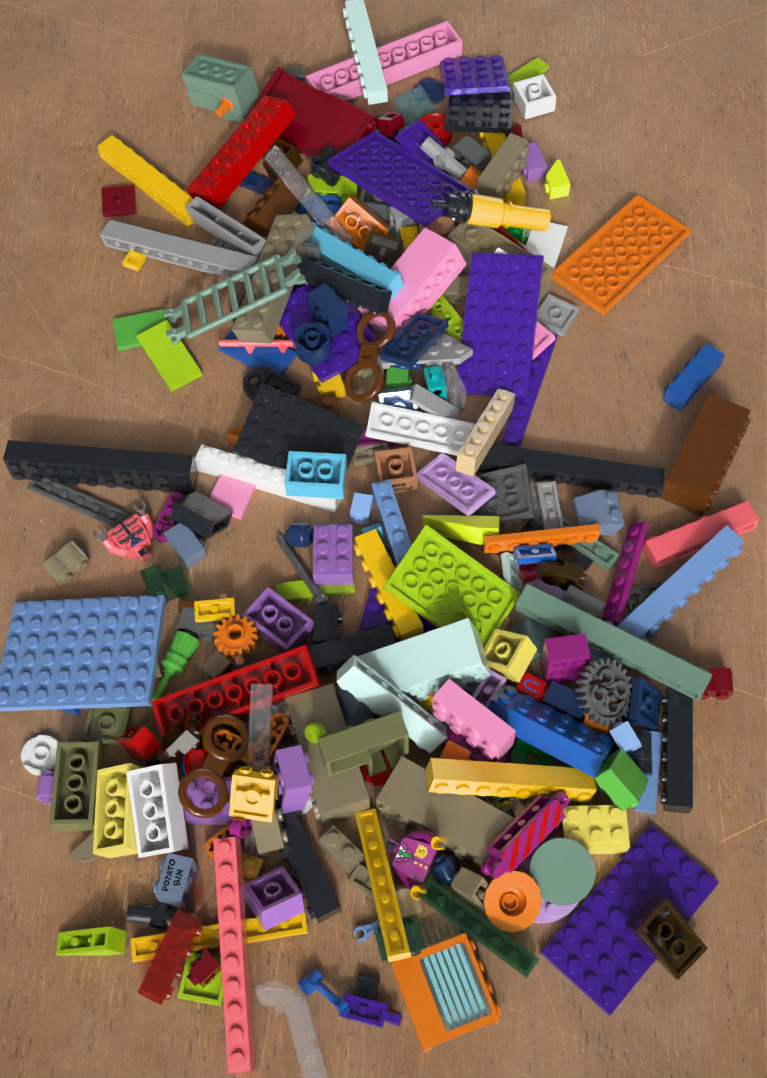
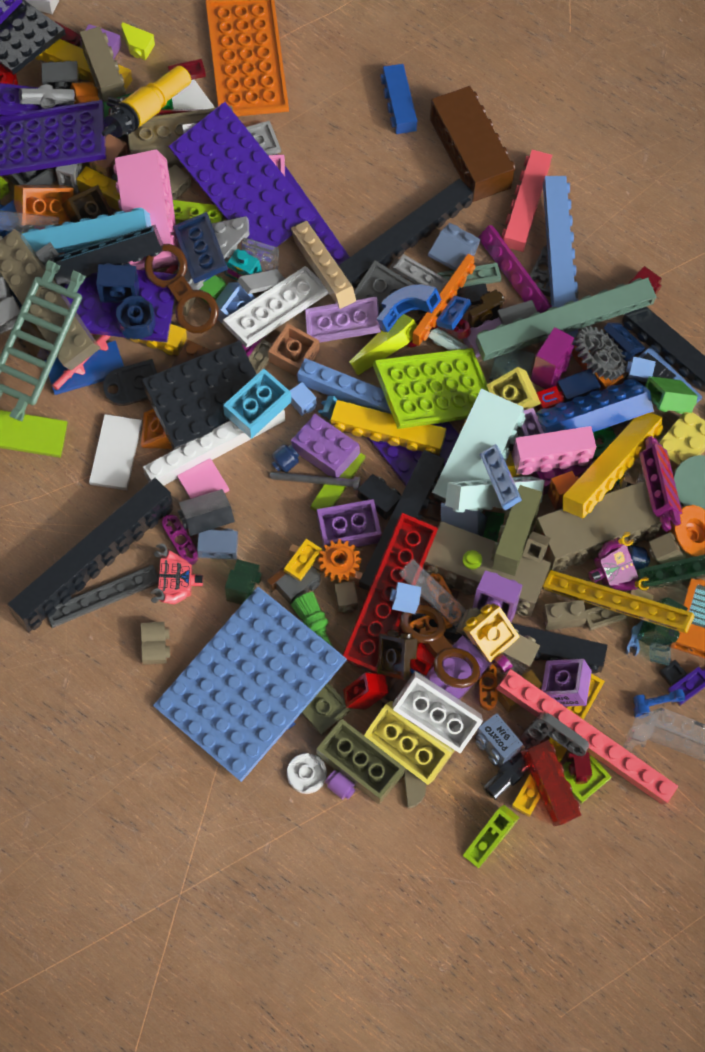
camera: 55 degrees left, 5 degrees up
(205, 422) = (115, 452): none -> white tile
(209, 909) = (554, 729): none -> dark grey beam
(233, 705) = (405, 598): none -> light blue brick
(370, 774) = (536, 547): none -> dark tan brick
(372, 960) = (660, 654): none -> clear light blue tile
(397, 693) = (500, 477): none -> medium blue tile
(505, 509) = (407, 299): none -> blue arch
(564, 227) = (194, 68): none -> dark red plate

